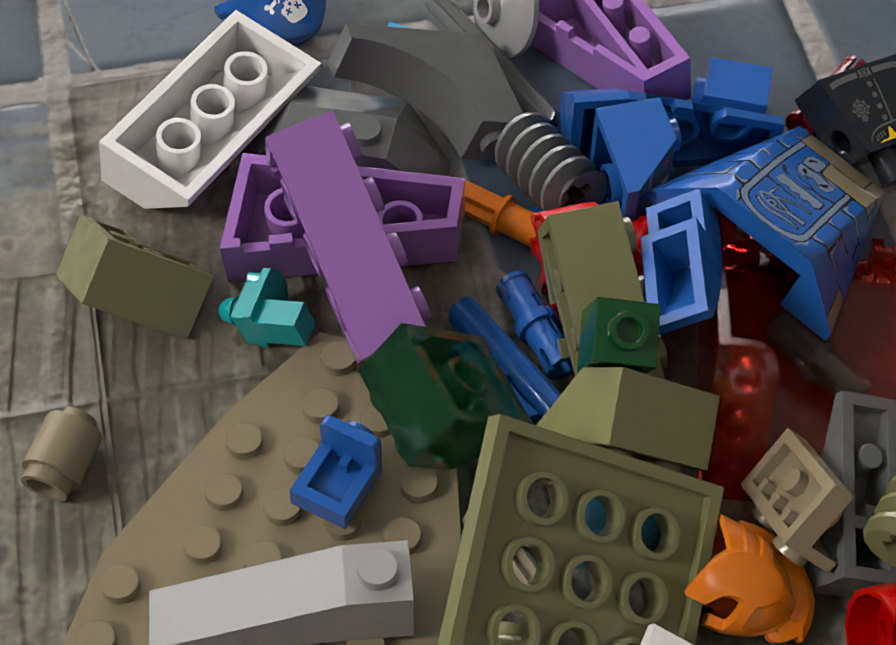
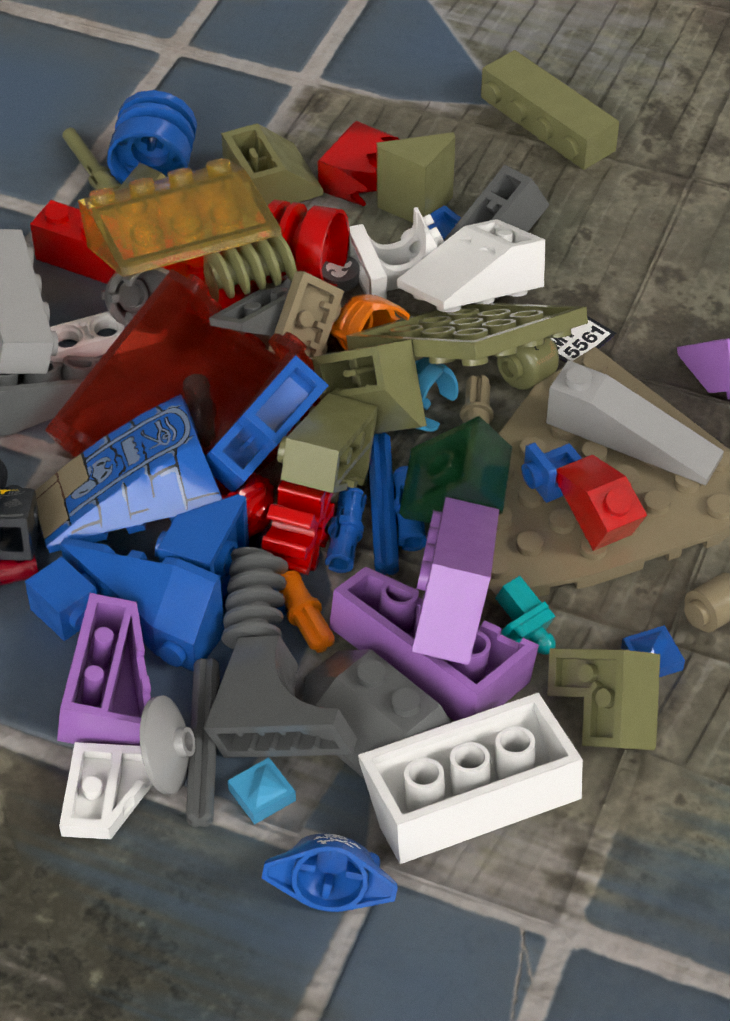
camera: 145 degrees left, 5 degrees down
(109, 365) = (659, 642): none -> blue tile
(253, 440) = (600, 500): none -> red slope
(619, 334) = (353, 385): dark green brick -> none

